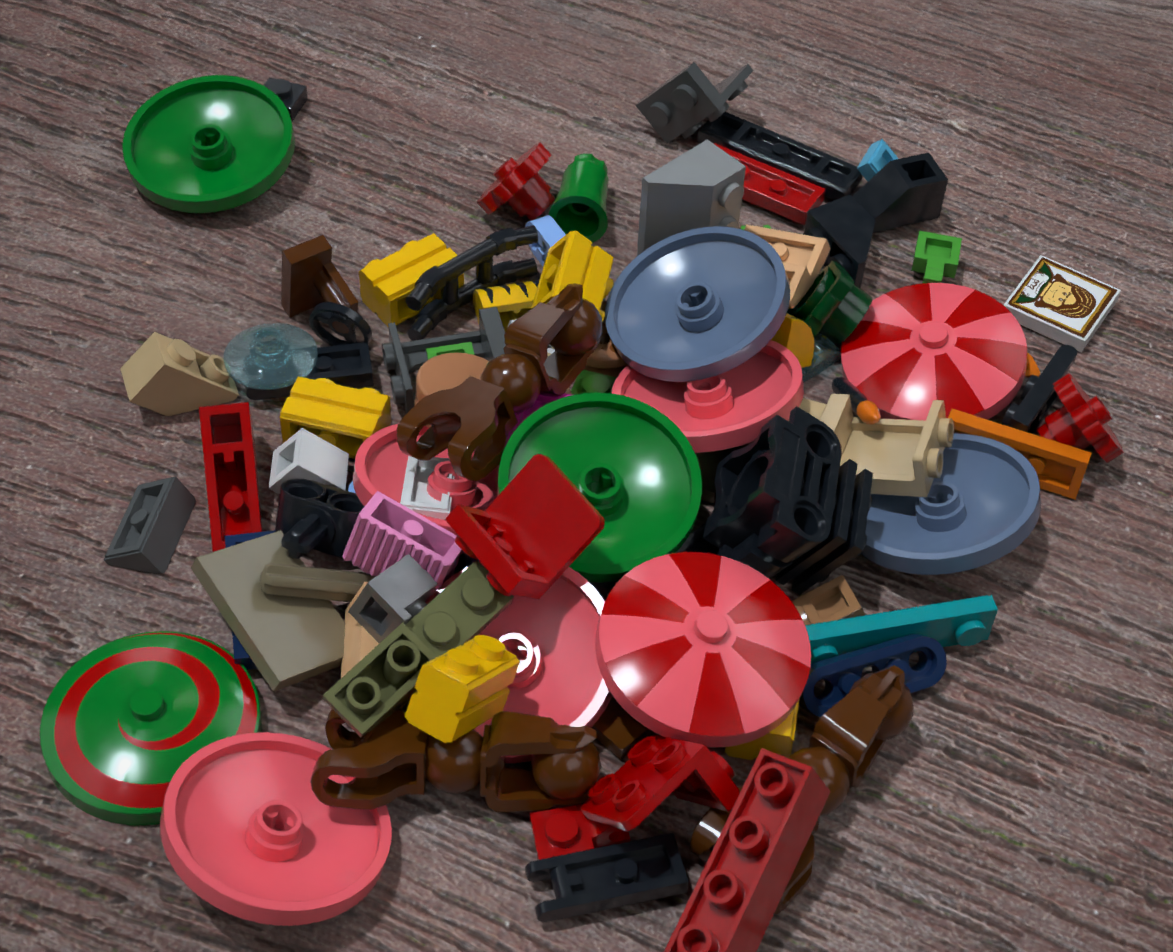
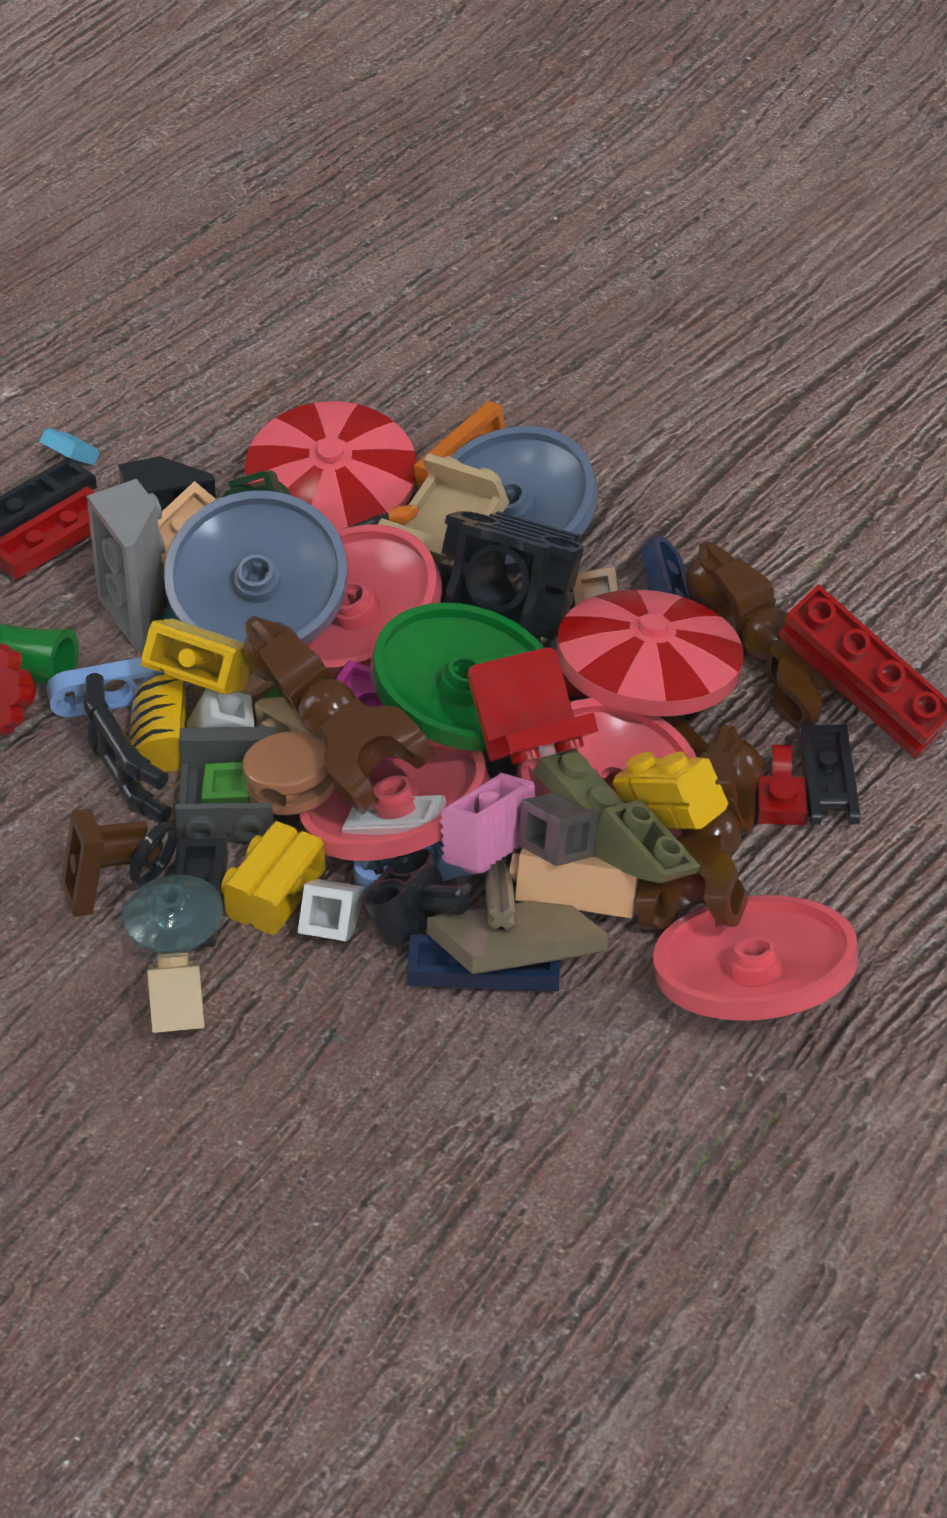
camera: 75 degrees left, 5 degrees down
(136, 715) = (606, 1058): green dish -> none
(151, 526) = (359, 1042): dark grey slope -> none
(230, 471) = (323, 961): red slope -> none
(391, 279) = (92, 783): yellow brick -> none
(655, 771) = (775, 708): red bracket -> none
(904, 192) = (119, 433): black slope -> none
(936, 256) = (205, 440): bright green plate -> none
(949, 623) = (631, 525): teal plate -> none
(1039, 393) = (419, 426): black hinge -> none
(1061, 302) = (282, 383): tile -> none
(1081, 421) = (446, 399): red plant -> none

